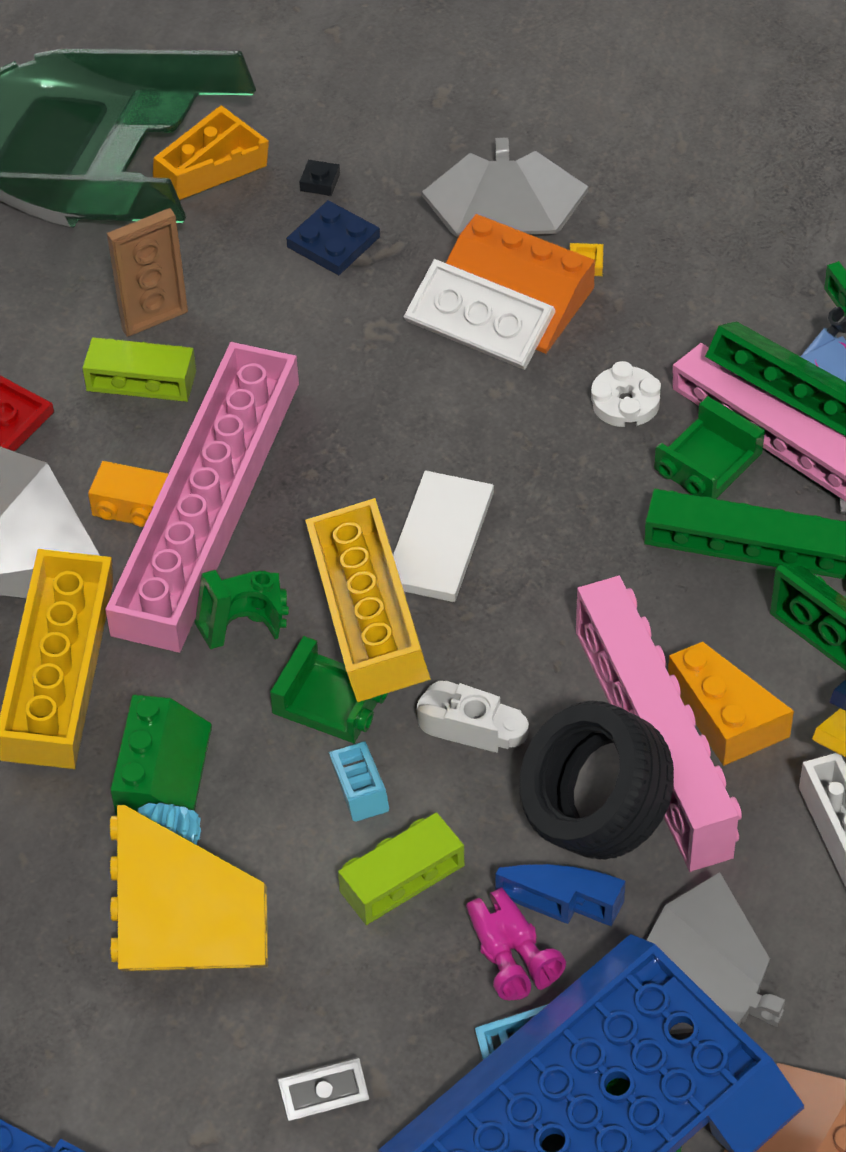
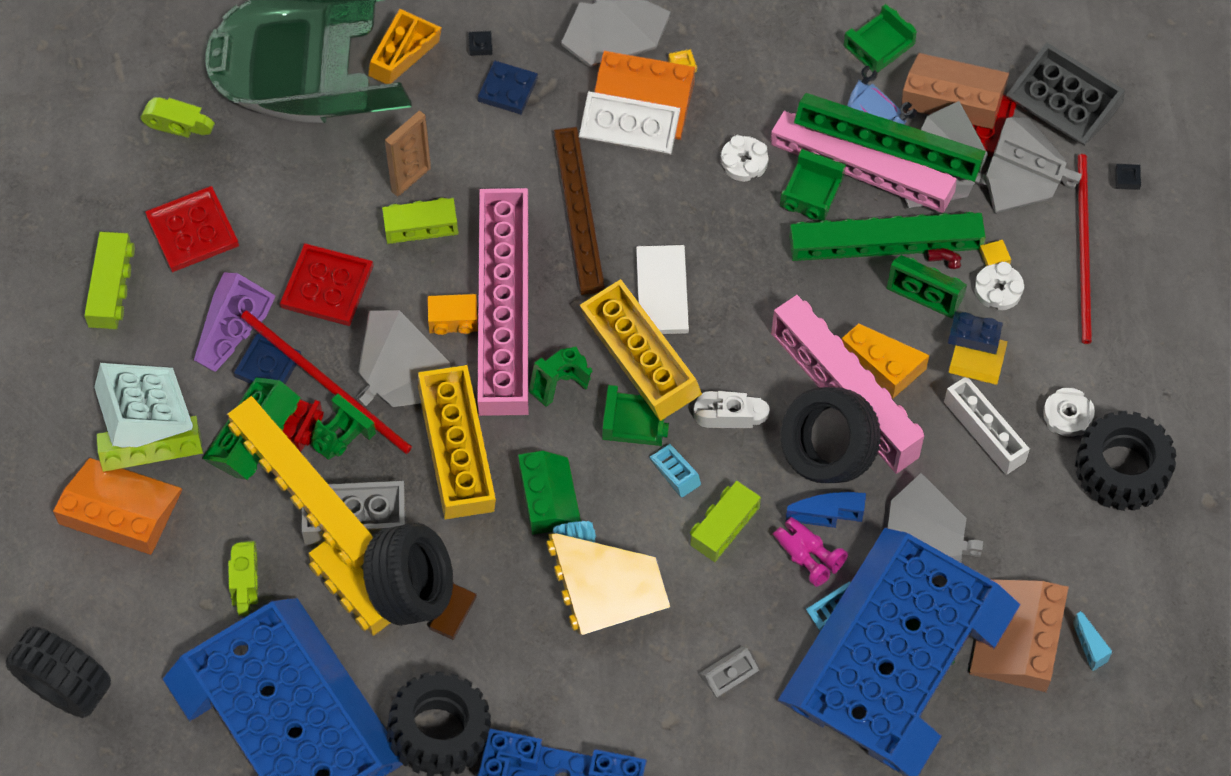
camera: 20 degrees left, 10 degrees up
(365, 406) = (579, 211): none -> reddish brown tile

